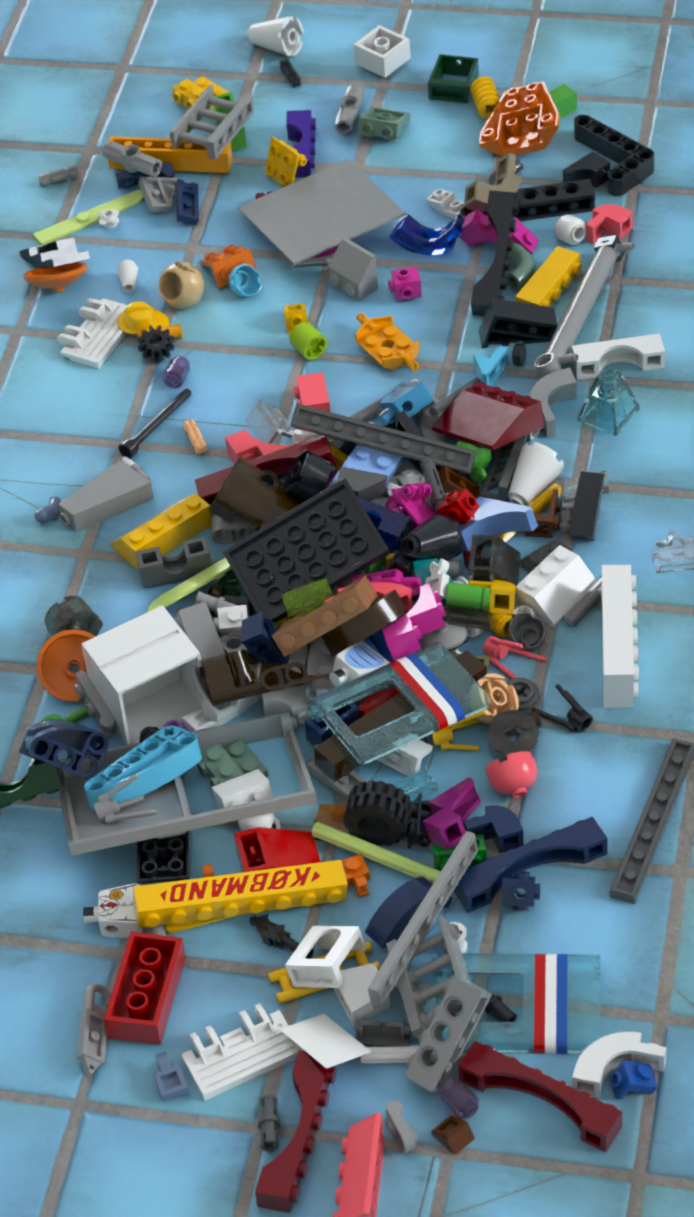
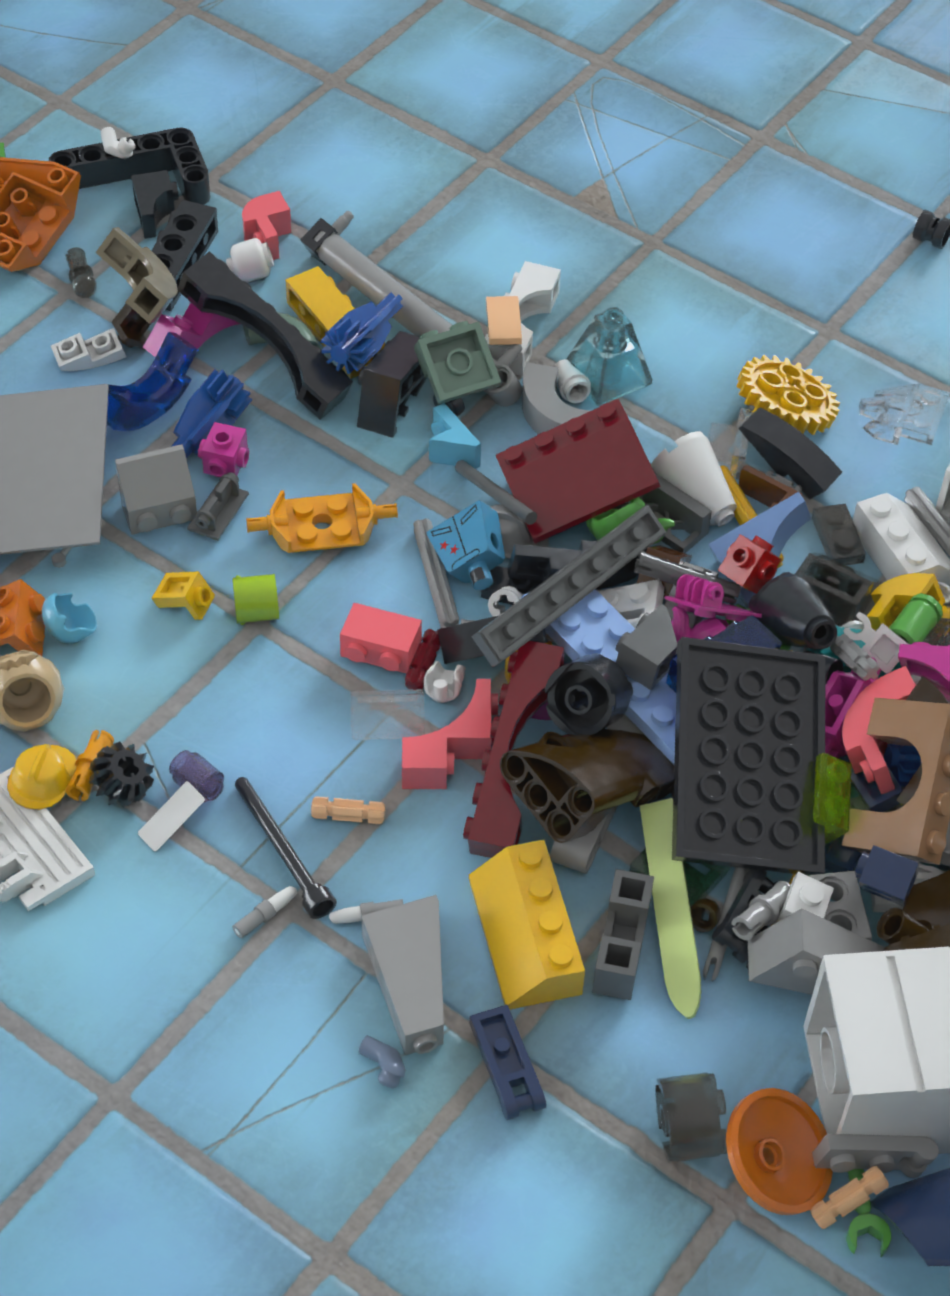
camera: 70 degrees left, 5 degrees up
(66, 706) = (849, 1197): none -> light nougat axle
(74, 553) = (507, 1061): none -> dark blue plate
(112, 434) = (264, 911): none -> light grey piece
(147, 374) = (171, 816): none -> white sticker
(376, 301) = (219, 508): none -> dark grey hinge
(409, 570) = (855, 657): none -> light grey axle
(432, 265) = (217, 400): none -> blue piece
(527, 287) = (360, 333): none -> blue piece
(533, 333) = (457, 361): none -> sand green plate
(575, 398) = (572, 383): none -> white cone
(586, 341) = (503, 320): none -> light nougat slope
(607, 132) = (116, 148): none -> white arm
(624, 483) = (788, 393): none -> yellow gear

